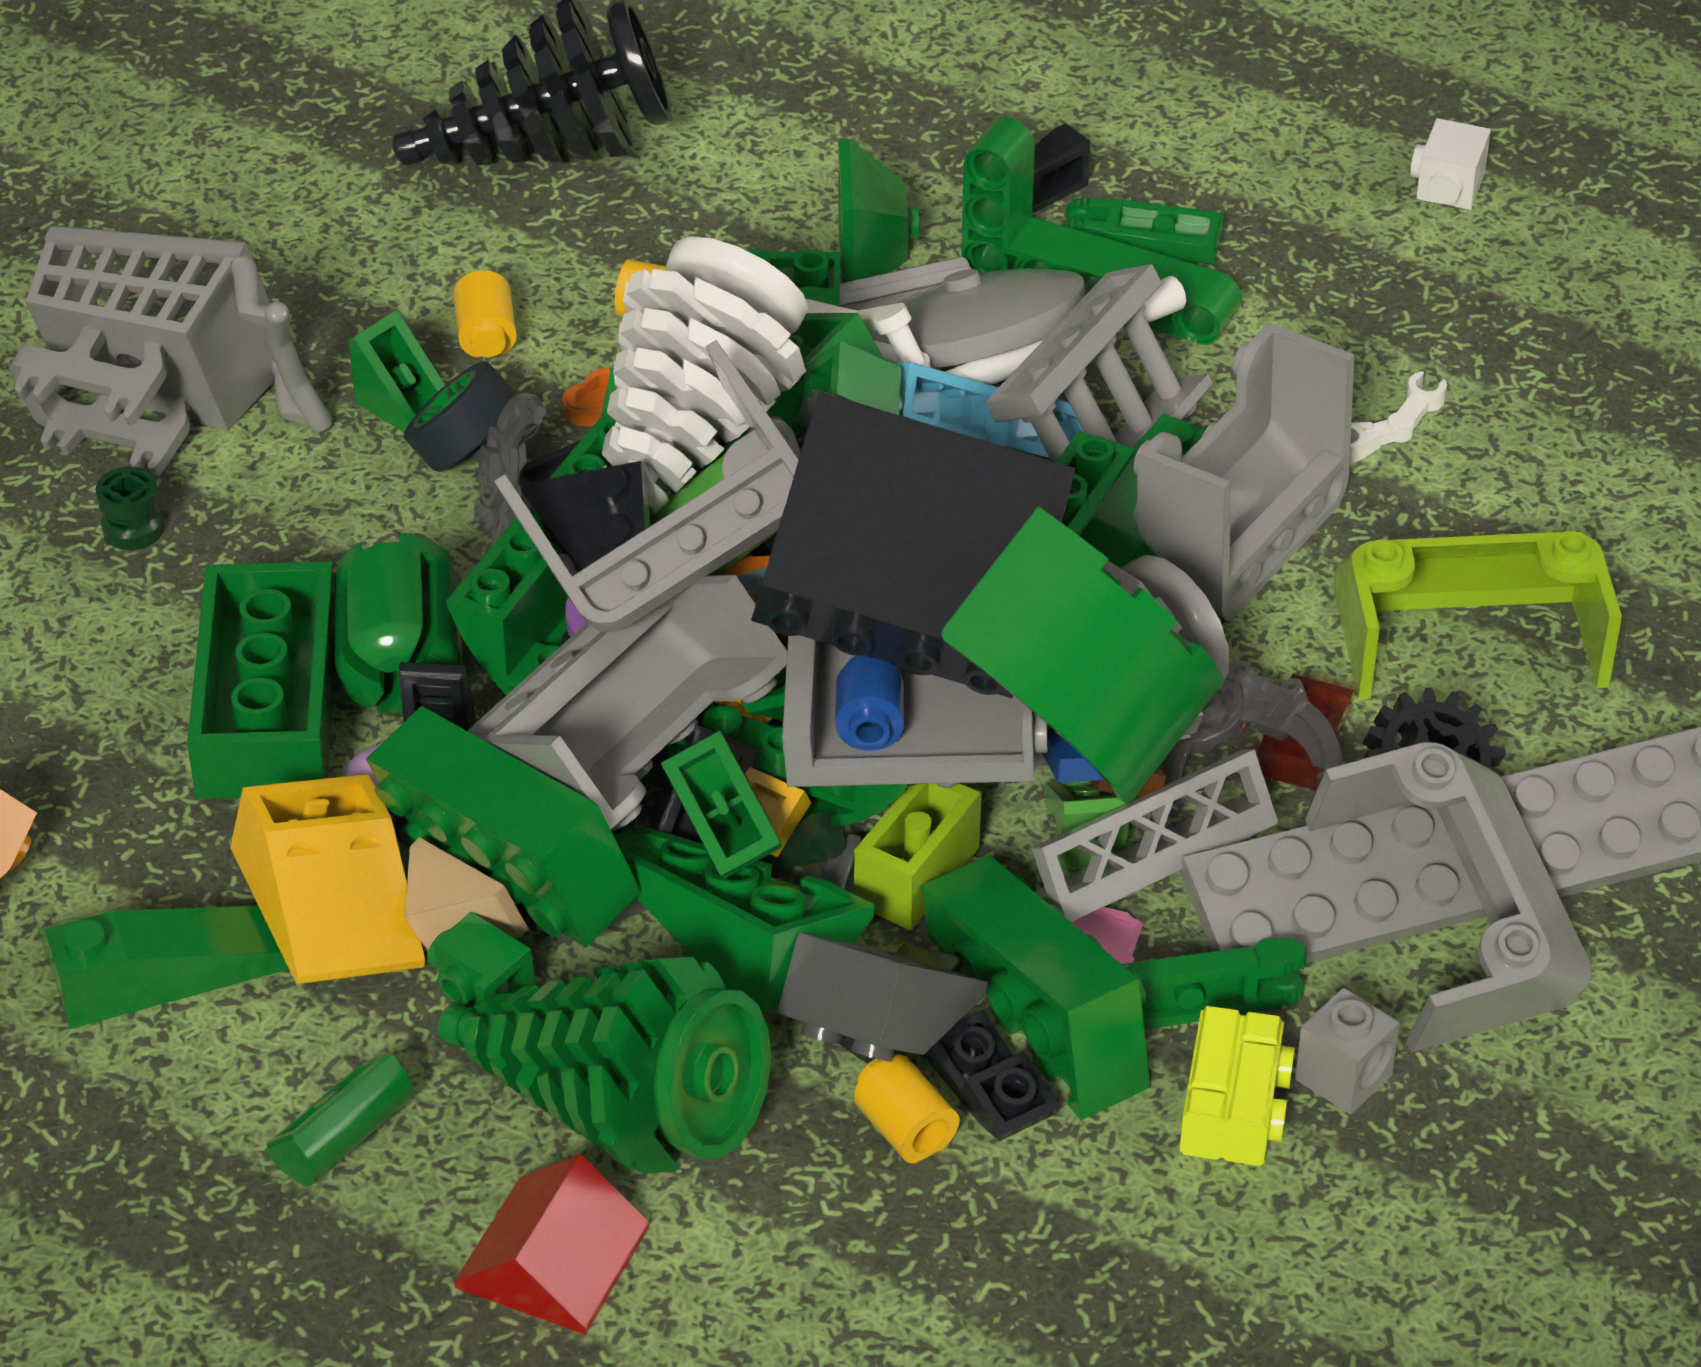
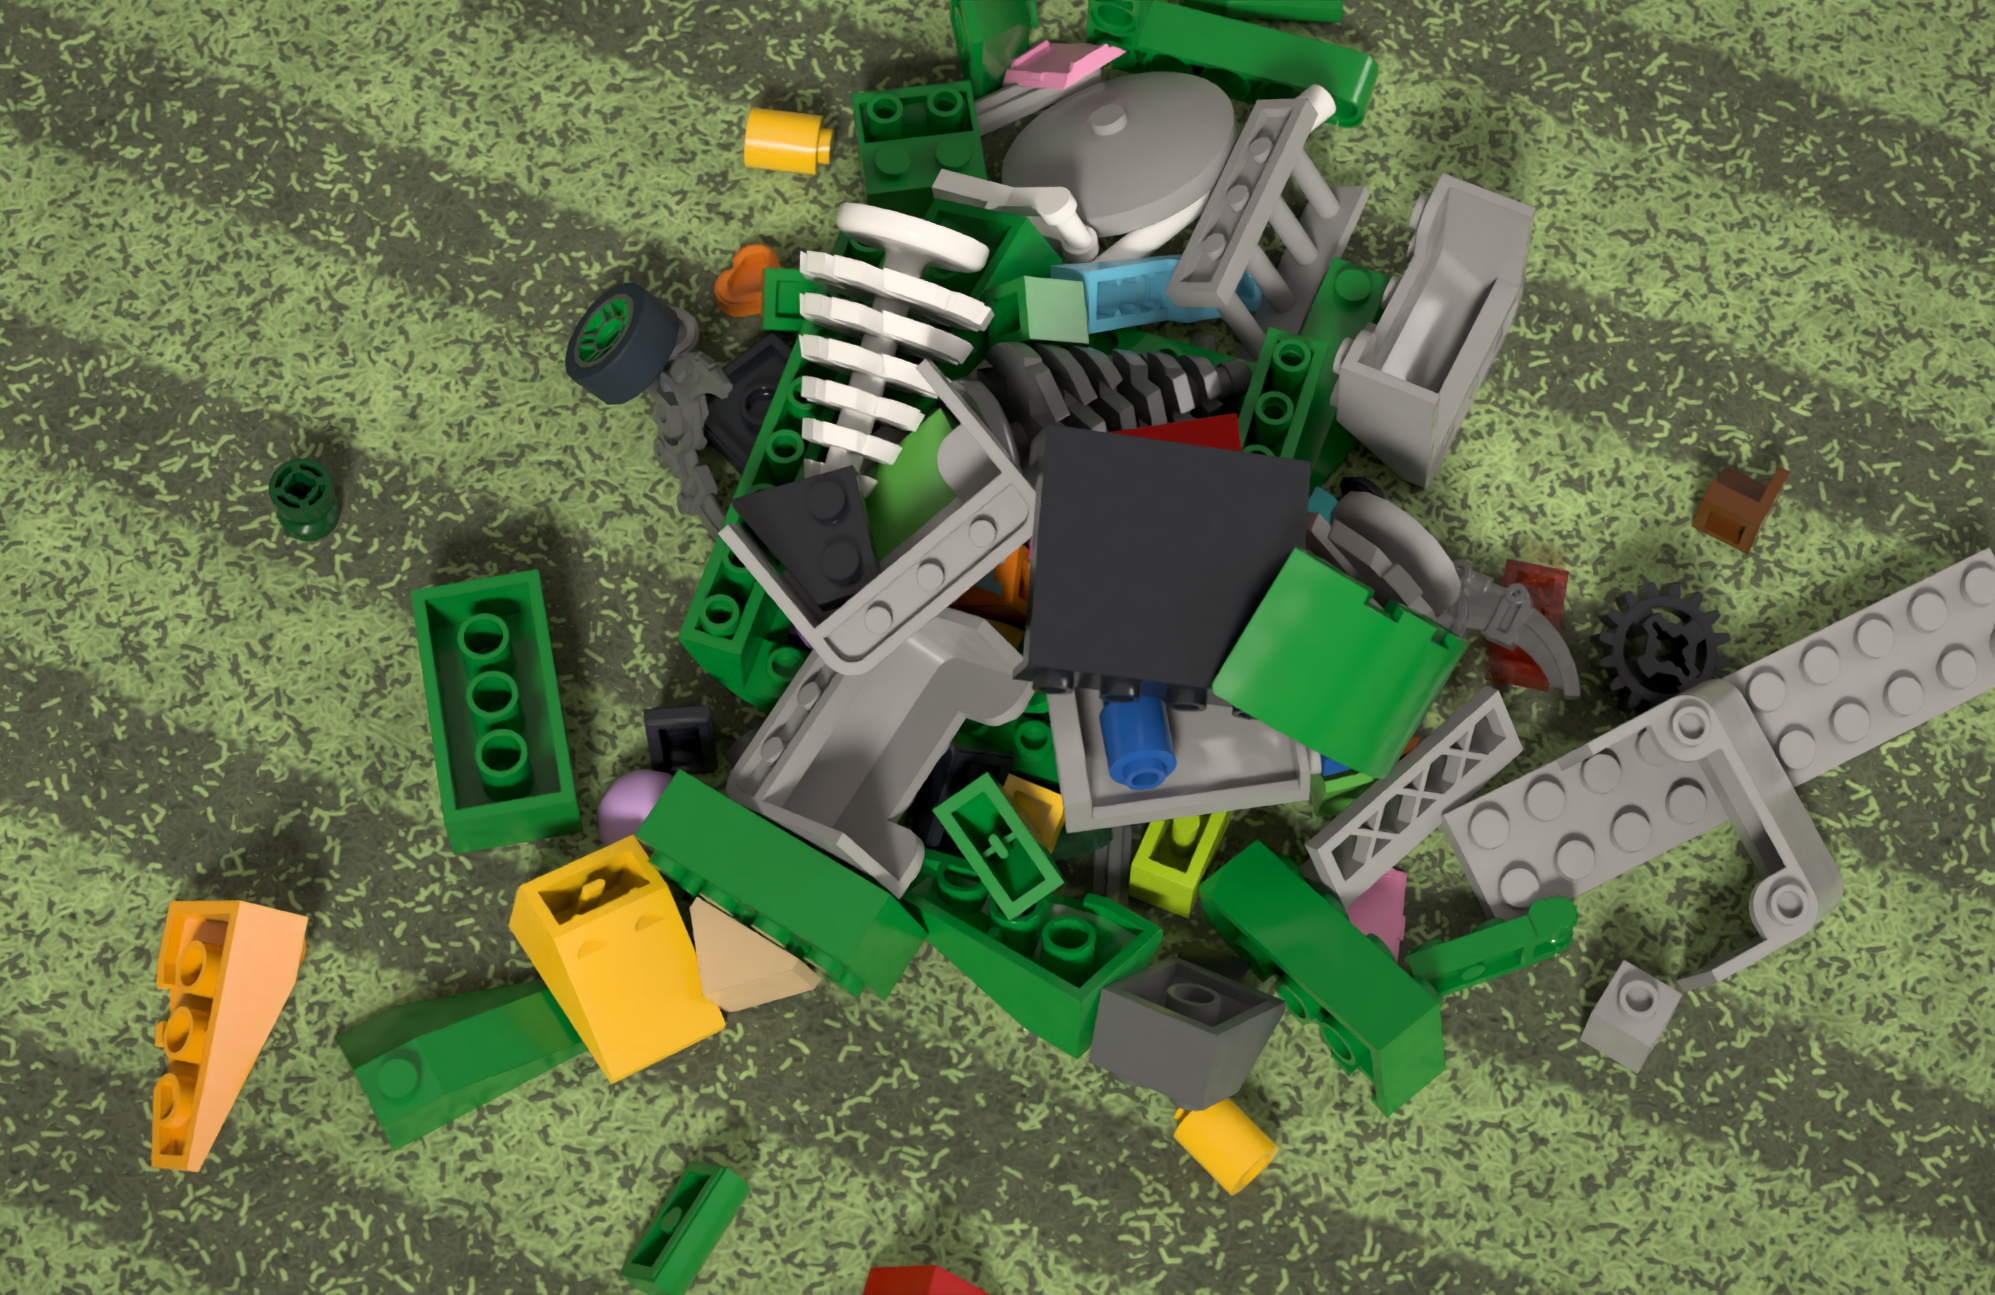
camera: 10 degrees left, 20 degrees up
(188, 369) = (352, 327): light grey piece -> none
(390, 613) = (618, 631): green cylinder -> none
(392, 371) = (540, 290): green slope -> none
(479, 961) = (786, 1036): green brick -> none
(484, 314) = (613, 192): yellow brick -> none
(629, 1057) = (953, 1144): green plant -> none
(943, 251) = (1058, 64): none -> bright pink piece
(990, 1081) = (1302, 1094): black slope -> none
(1233, 1086) = (1531, 1070): neon yellow brick -> none
(1400, 425) = (1561, 211): white piece -> none
(1471, 574) = (1584, 424): lime windscreen -> none
(1535, 666) = (1738, 507): none -> reddish brown panel

